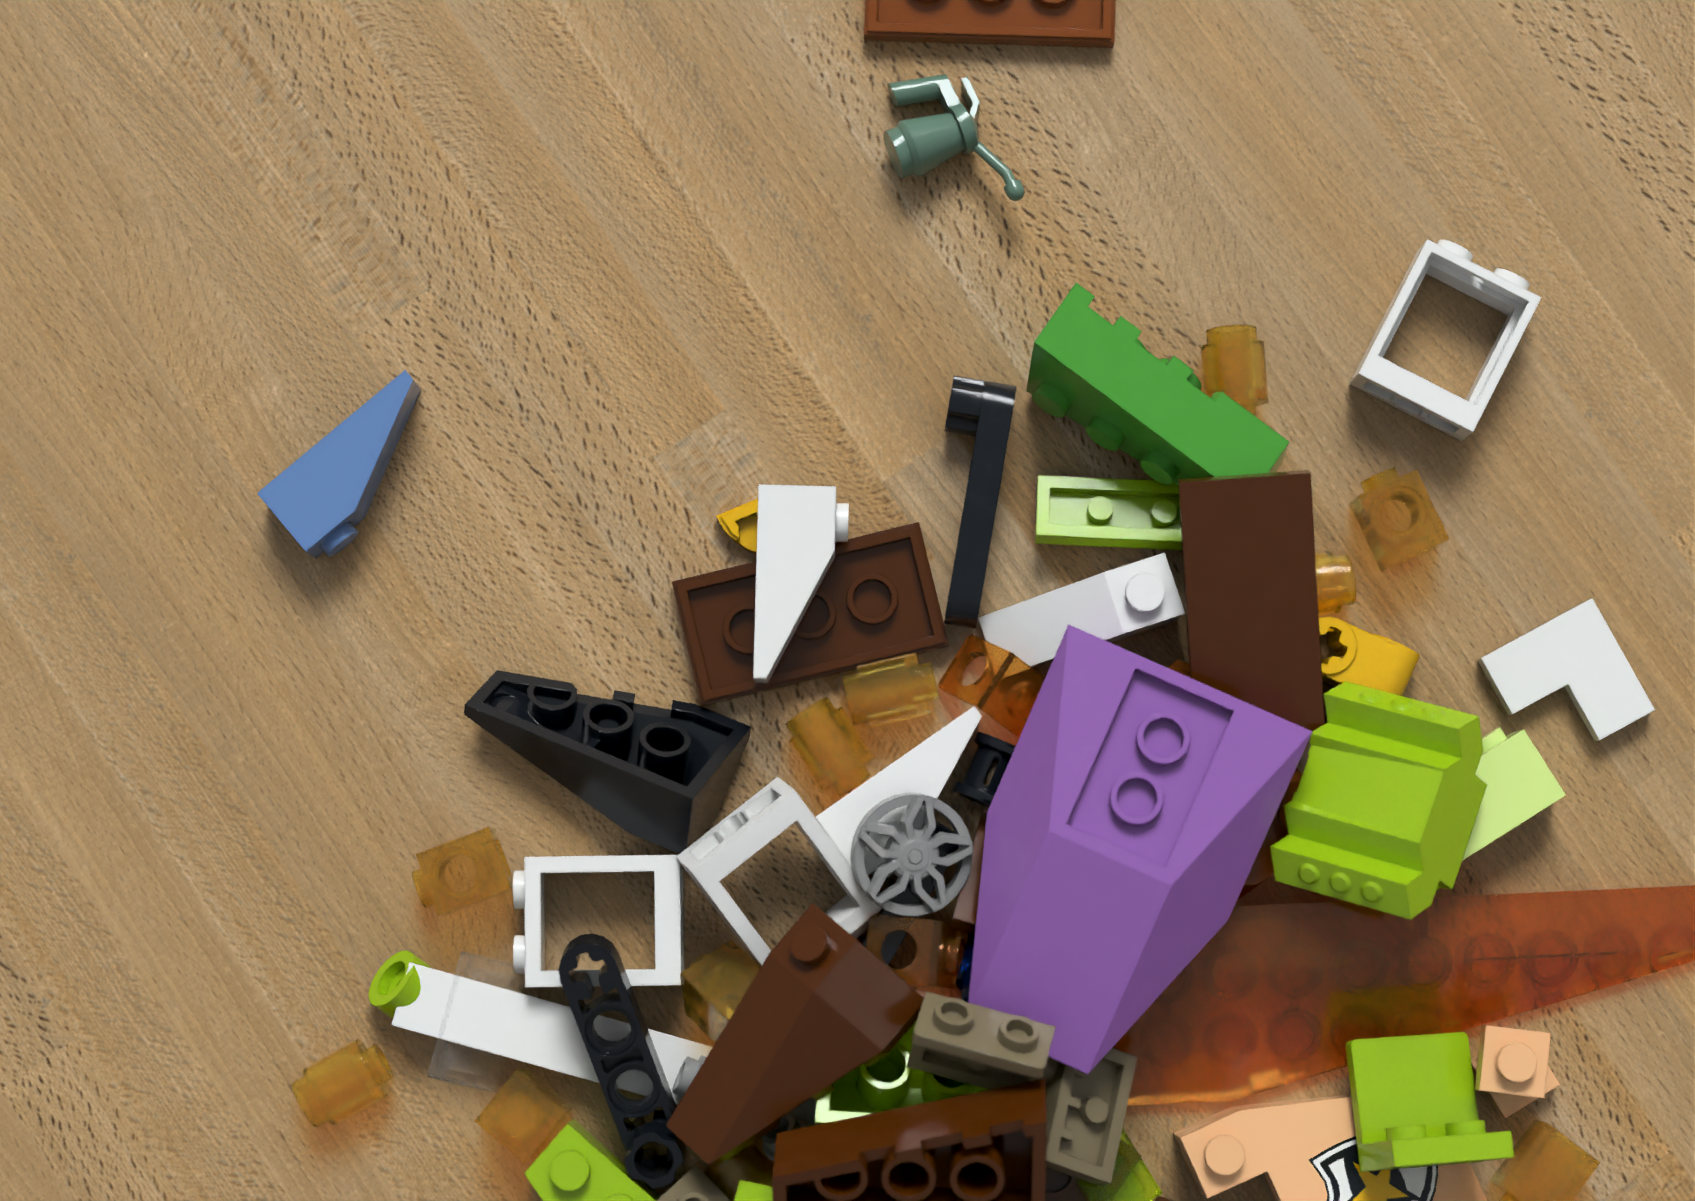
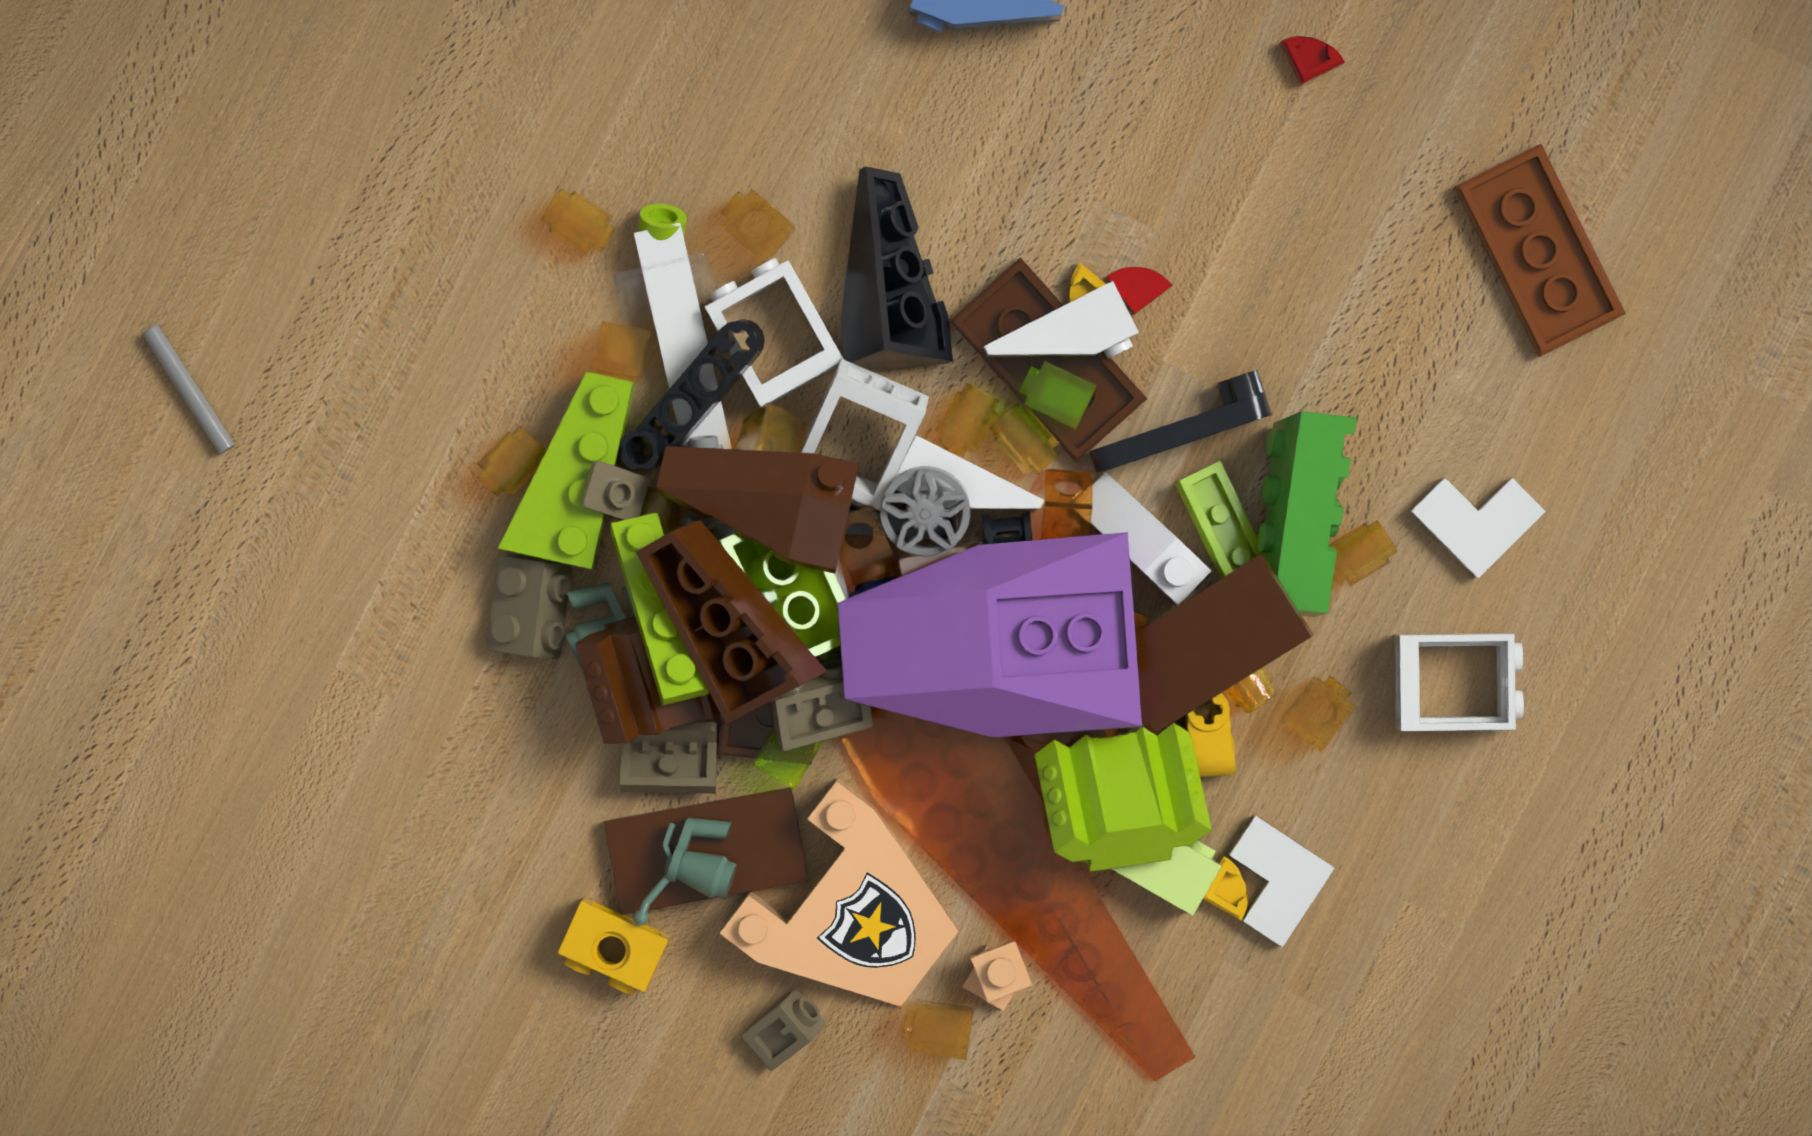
camera: 65 degrees right, 5 degrees up
(623, 123) = (1310, 57): none -> red tile
(781, 460) = (1138, 286): none -> red tile
(857, 623) = (1057, 394): none -> clear neon green brick
(929, 141) = (1406, 268): sand green piece -> none
(978, 1043) = (826, 617): dark tan bracket -> none
(1286, 219) = (1478, 535): none -> white tile
(1418, 1103) = (941, 924): lime bracket -> none
(1553, 736) = (1228, 889): none -> yellow tile

